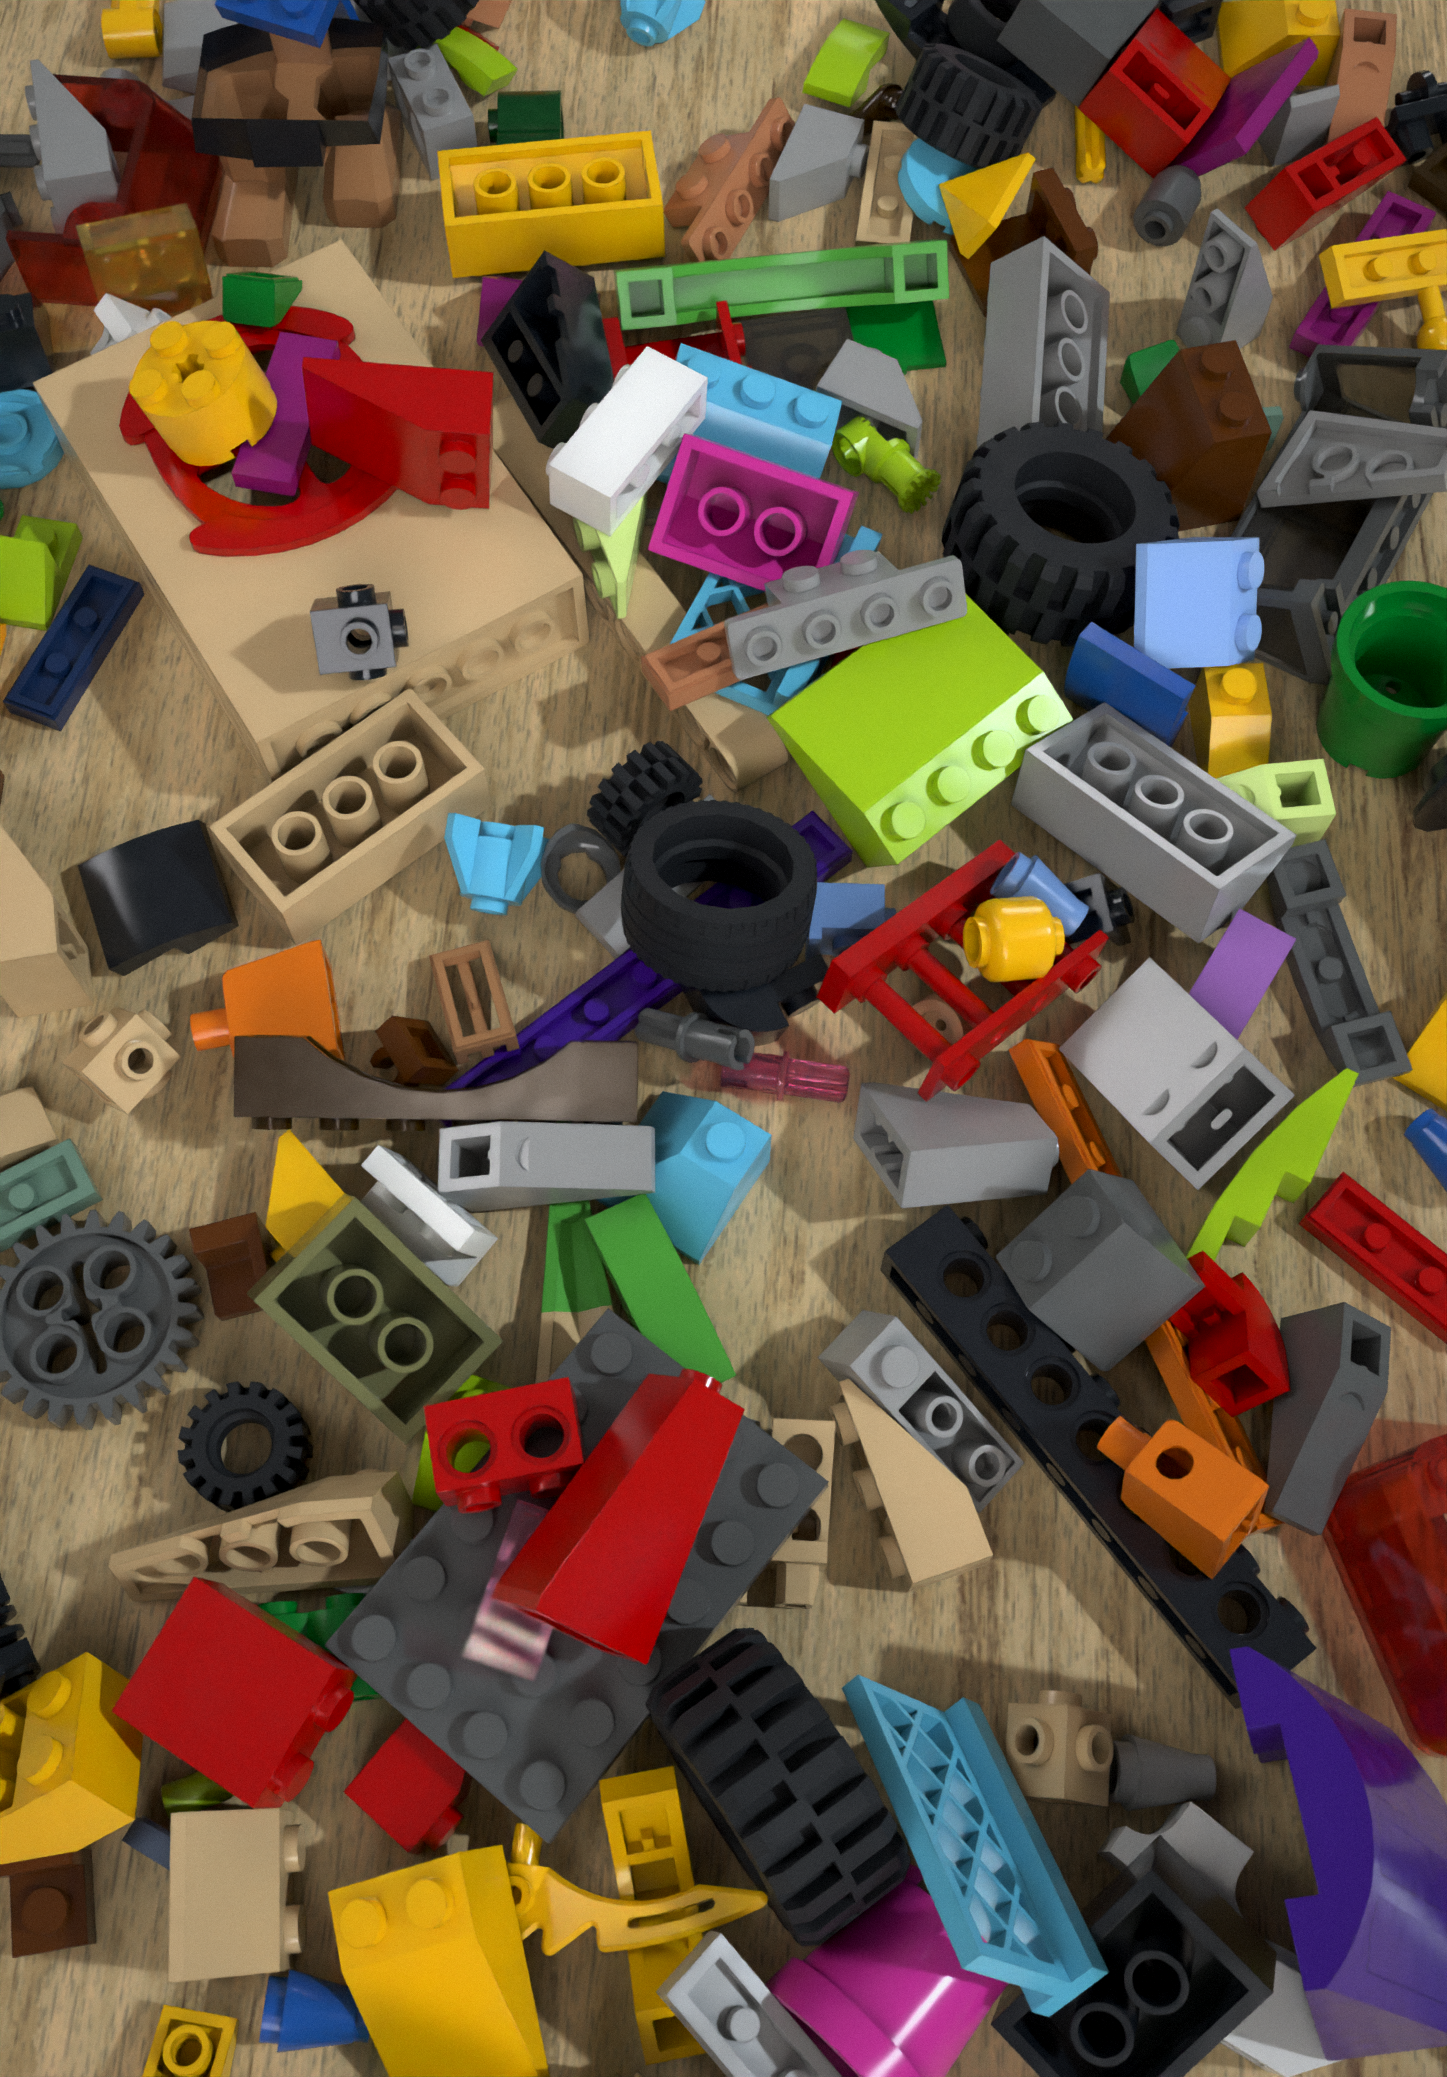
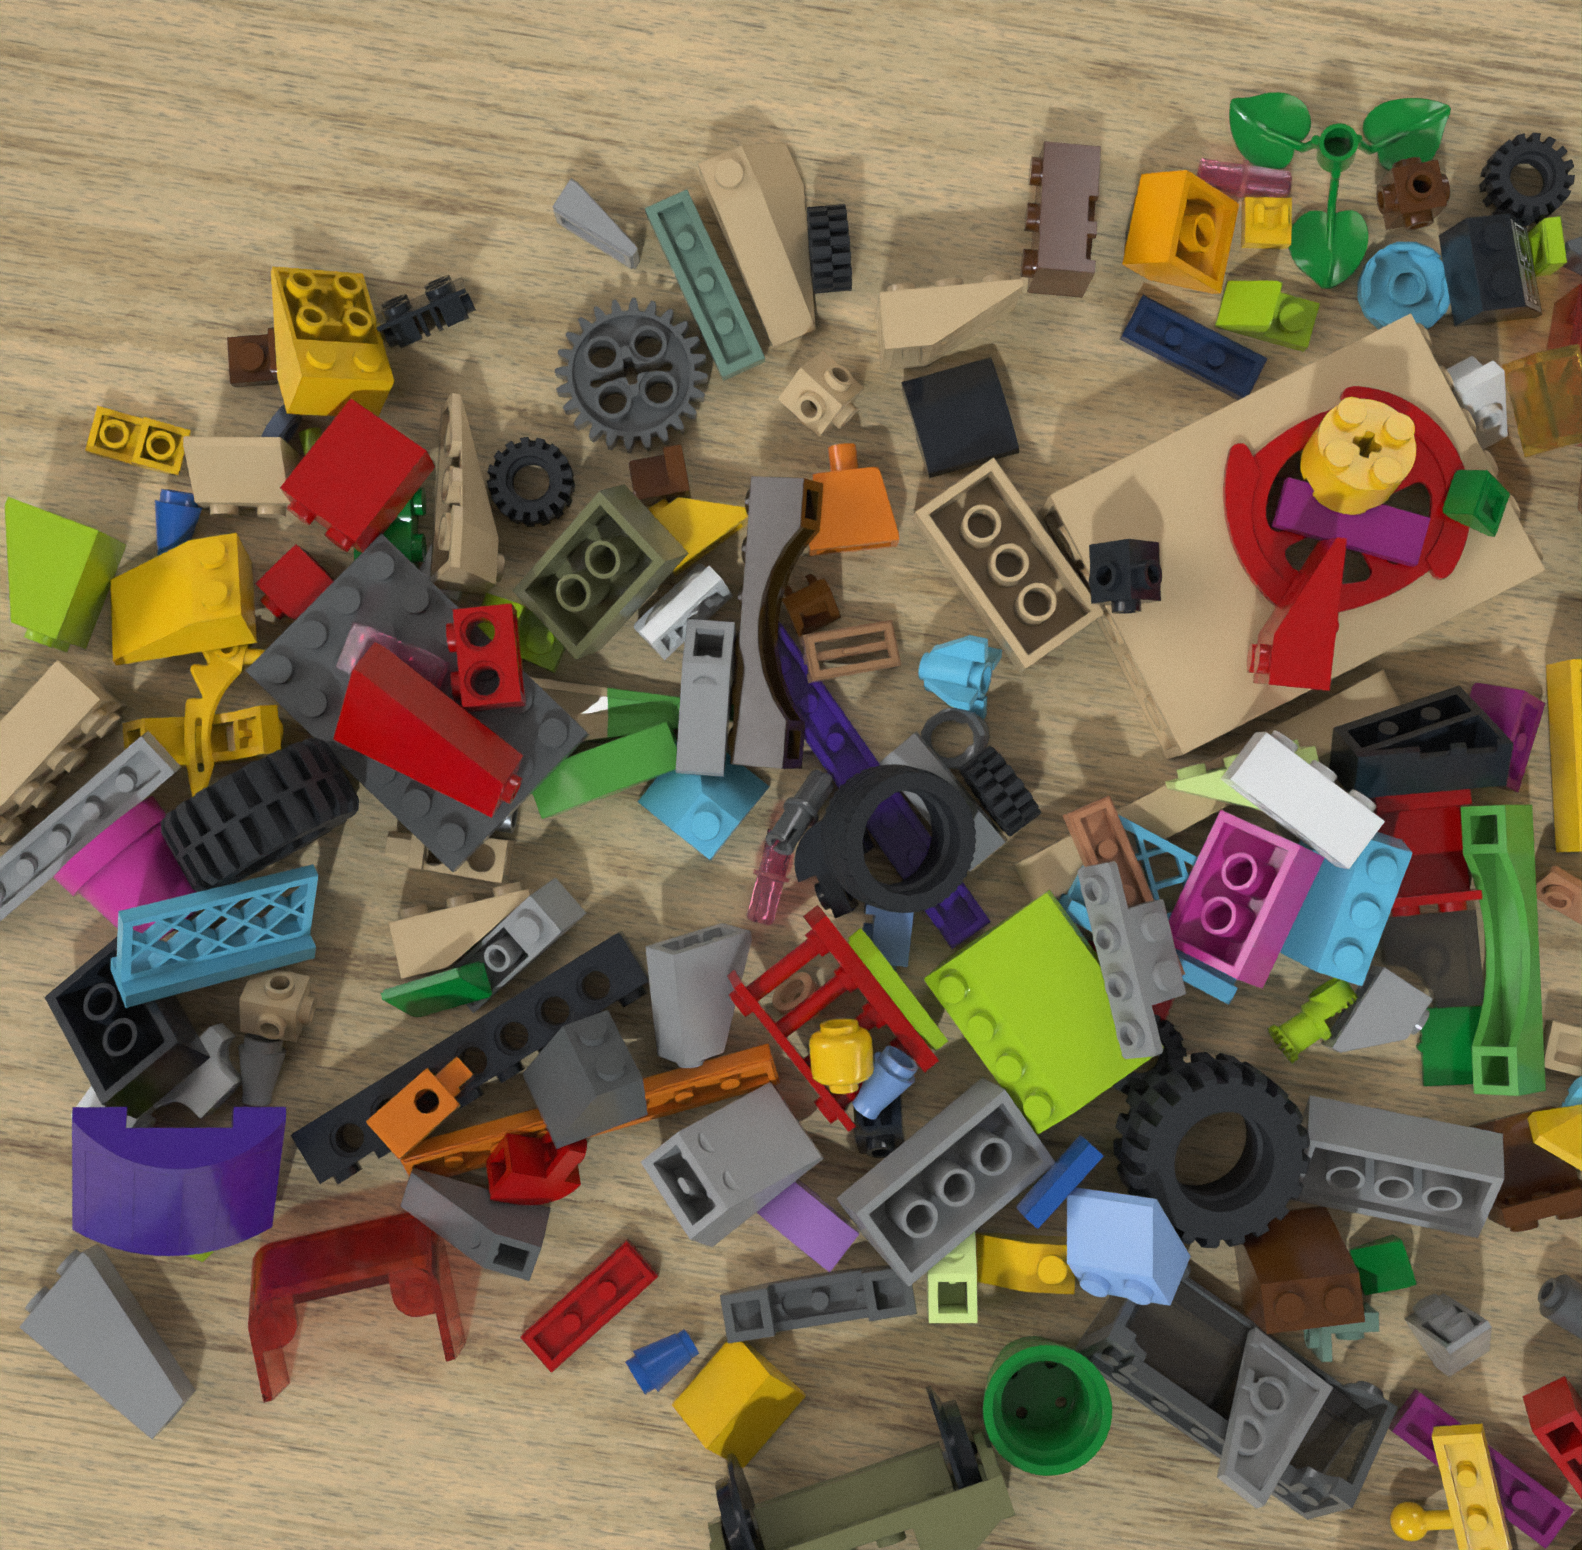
camera: 90 degrees right, 20 degrees up
(903, 885) = (897, 989): none -> lime tile
(1000, 1501) = (440, 991): none -> green slope
(1278, 1167) = (646, 1204): lime slope -> none

